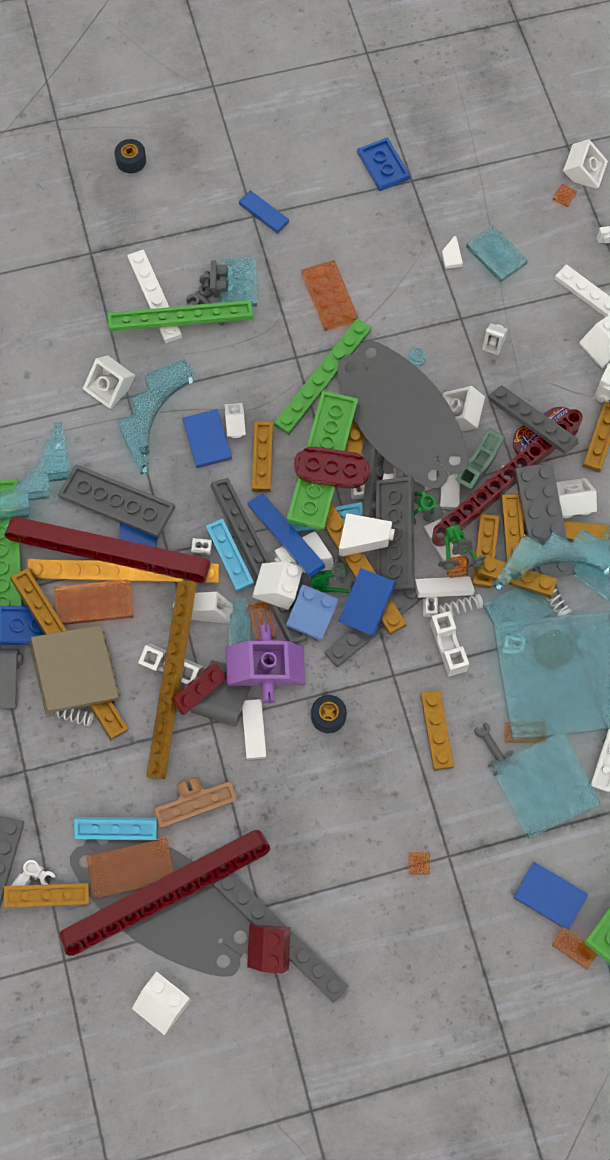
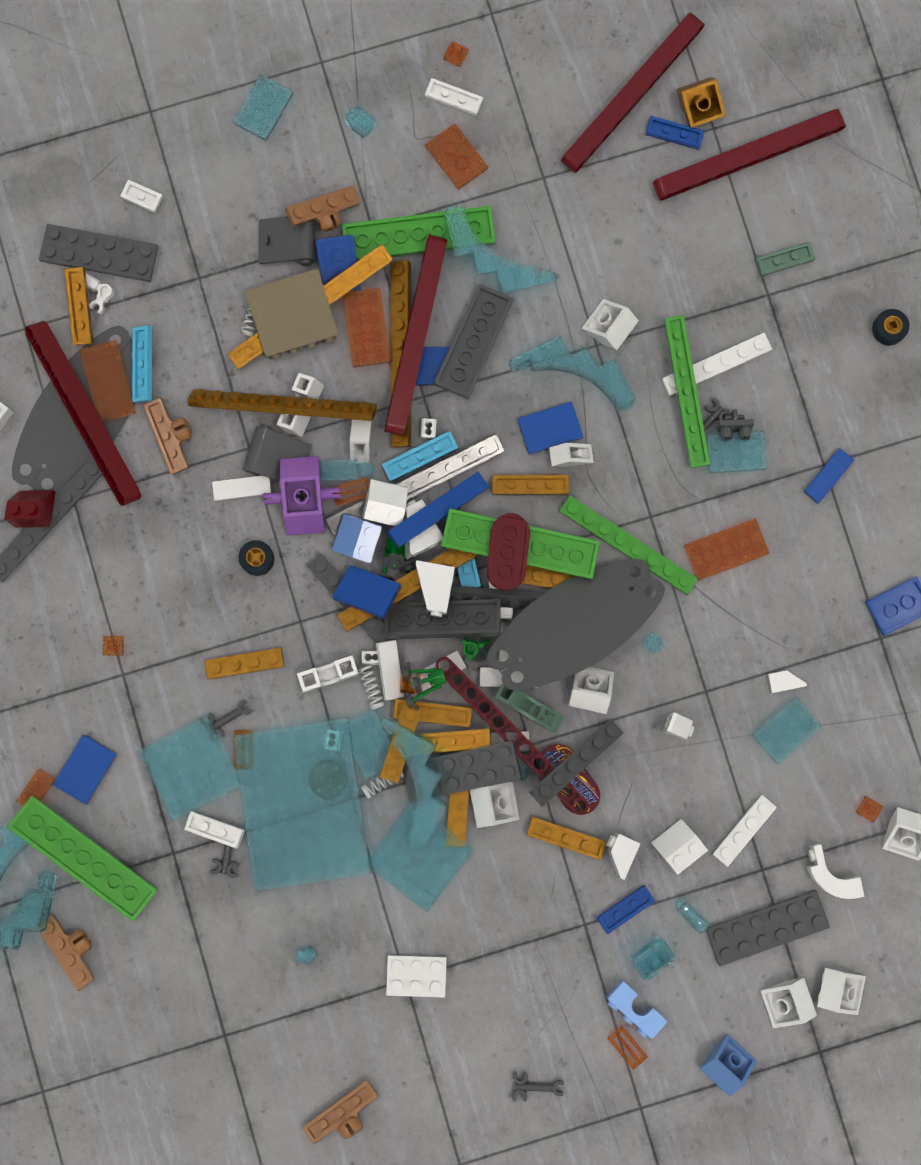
camera: 85 degrees right, 15 degrees up
(58, 237) = (785, 259): none -> sand green tile
(198, 688) = (273, 431): dark red plate -> none

